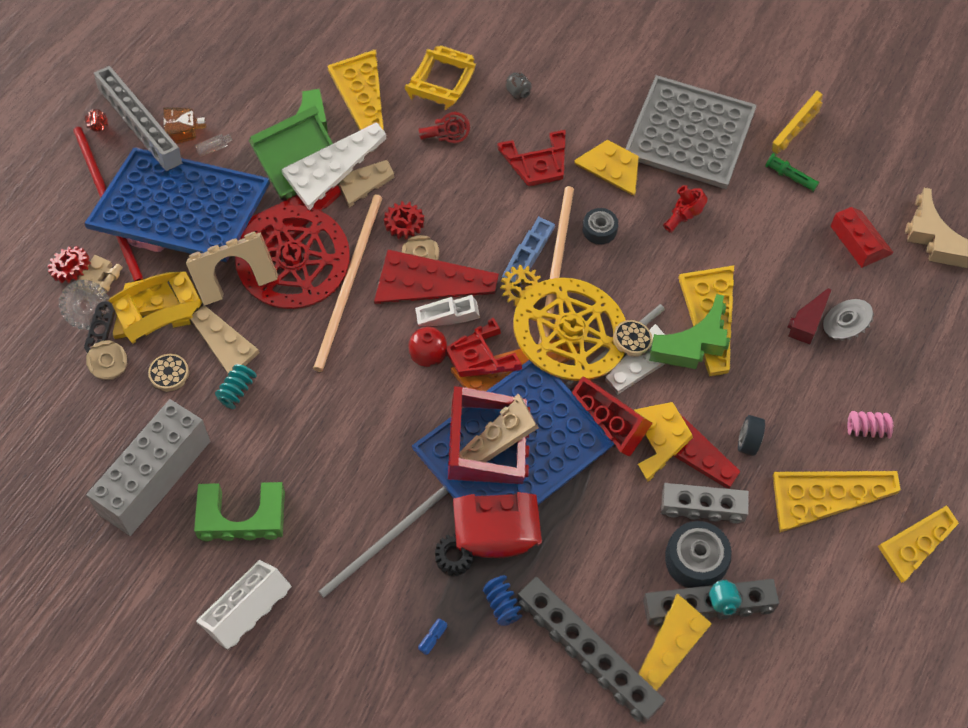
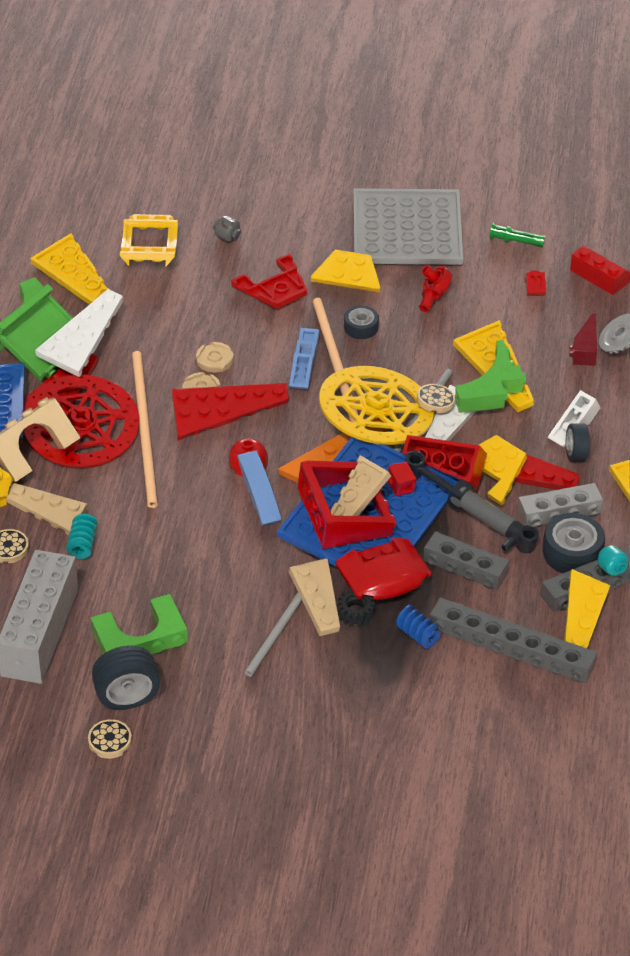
camera: 20 degrees left, 15 degrees down
(160, 624) = (109, 738): none -> tan tile
(194, 568) = (125, 677): none -> black wheel
(244, 604) = (182, 698): white slope -> none
(364, 180) = (116, 344): tan wing -> none
(404, 220) = (173, 364): red gear -> none
(420, 386) = (259, 488): none -> medium blue slope
(424, 521) = (317, 593): none -> tan wing
(430, 639) = (368, 672): blue piece -> none
(447, 222) = (214, 357): none -> tan tile
(448, 312) = (254, 425): white slope -> none
(450, 128) = (179, 279): red pin -> none
(473, 357) = (296, 449): red wing -> none
(520, 277) = (311, 385): yellow gear -> none
(556, 424) = (402, 479): none -> red brick
(566, 511) = (466, 560): none -> dark grey brick
(609, 463) = (463, 497): none -> black piece
(761, 404) = (580, 411): none -> white slope
(787, 233) = (535, 283): none -> red bracket
(800, 120) = (504, 193): yellow wing -> none

